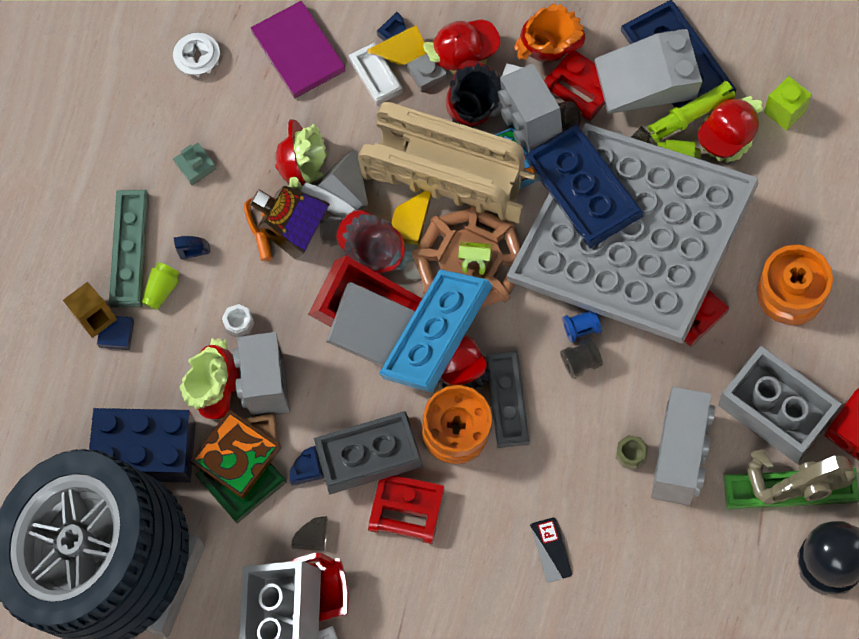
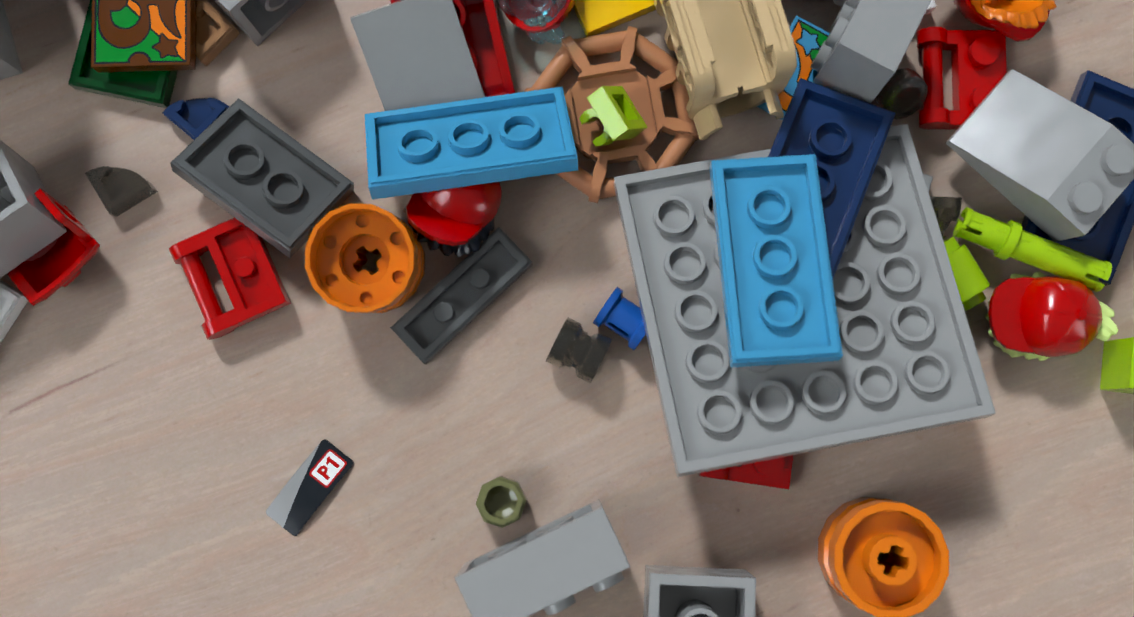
camera: 45 degrees right, 15 degrees up
(608, 224) = (774, 261): none -> dark azure tile

